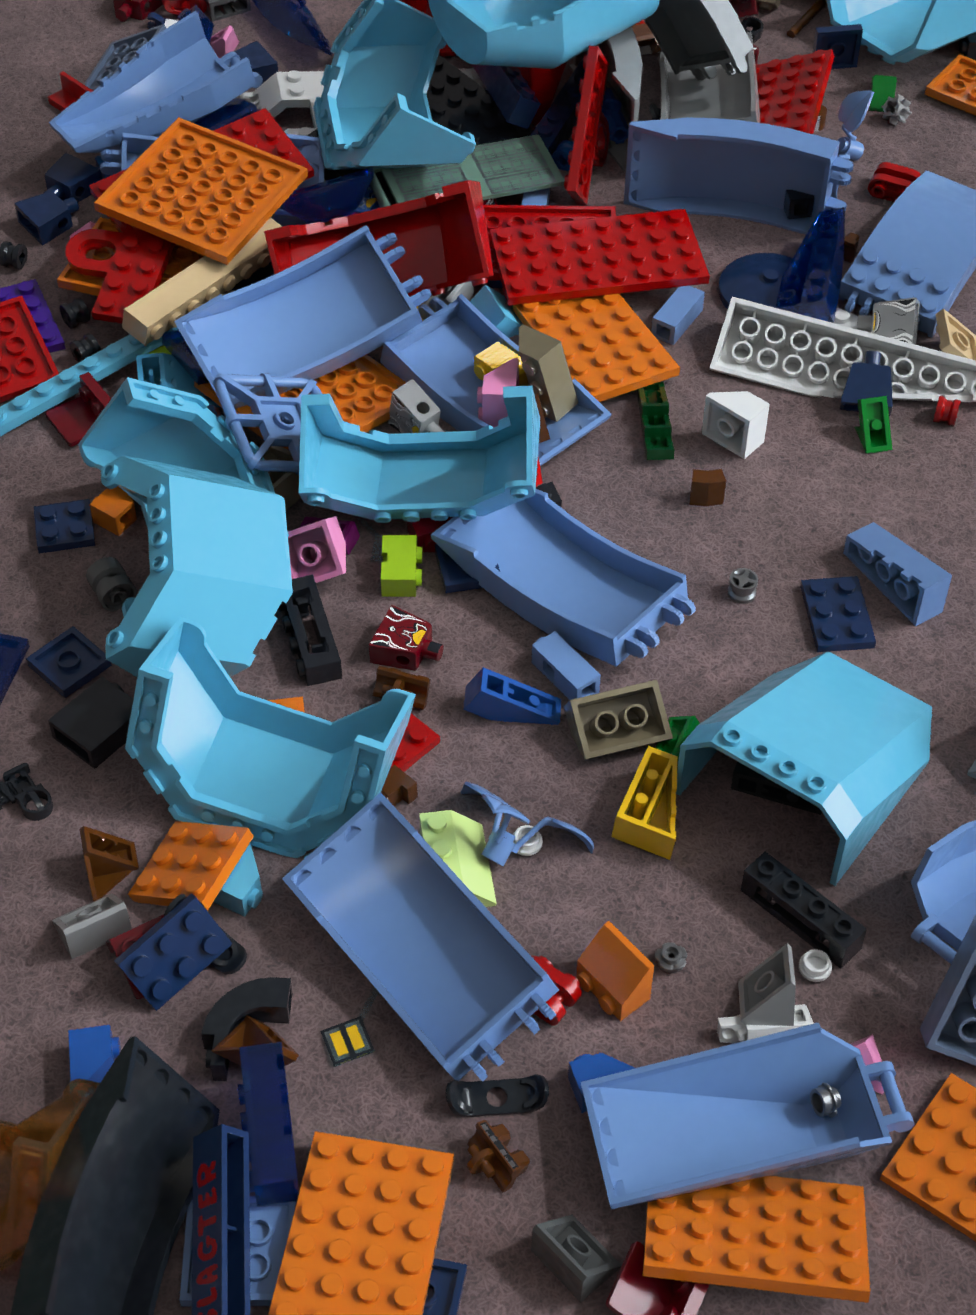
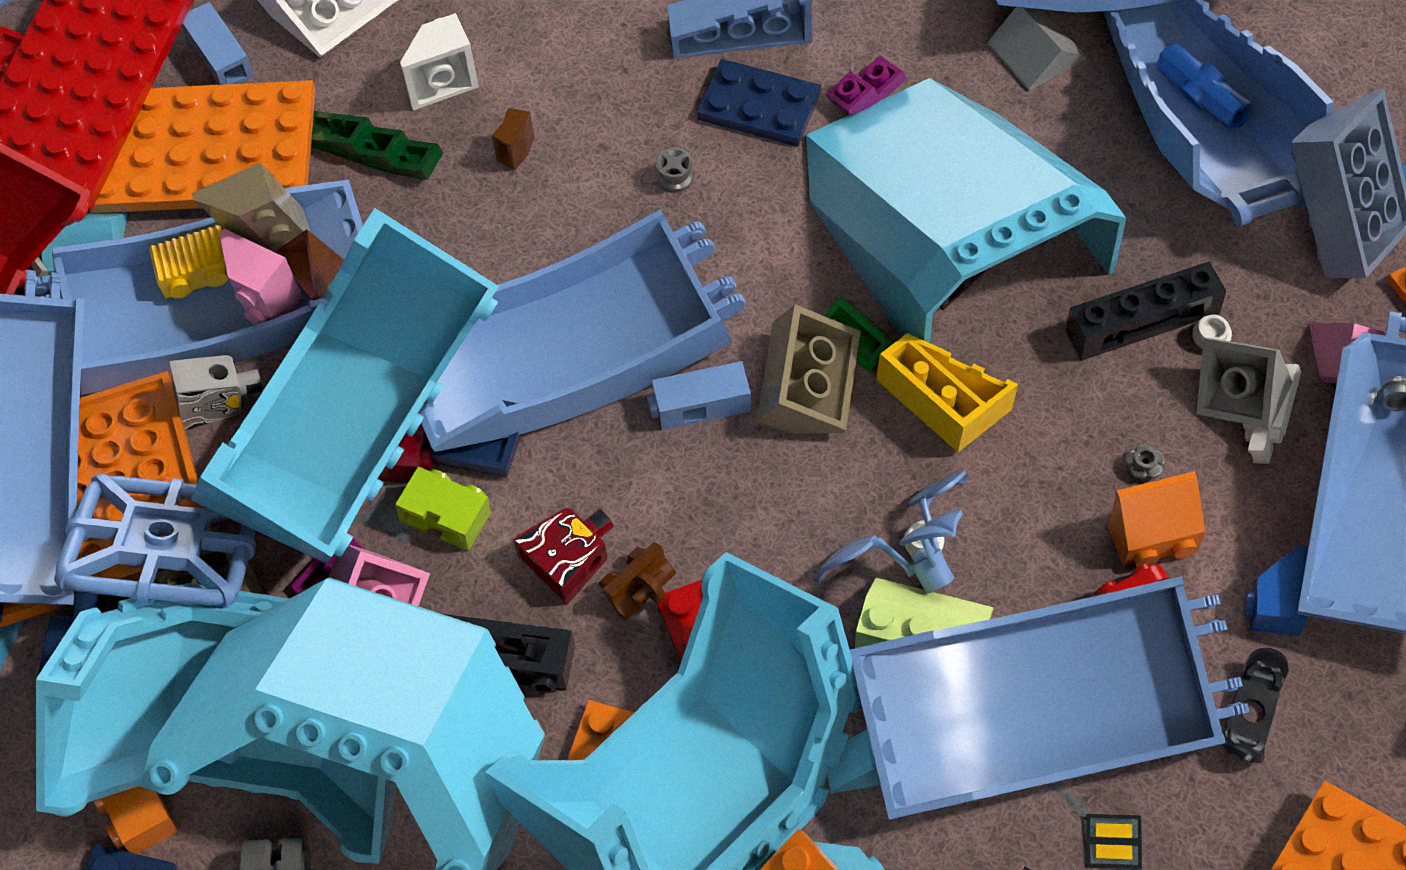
camera: 60 degrees left, 10 degrees up
(492, 1156) = (1335, 743): reddish brown hips -> none
(508, 700) = (718, 473): blue slope -> none
(885, 666) = (862, 91): none -> magenta slope

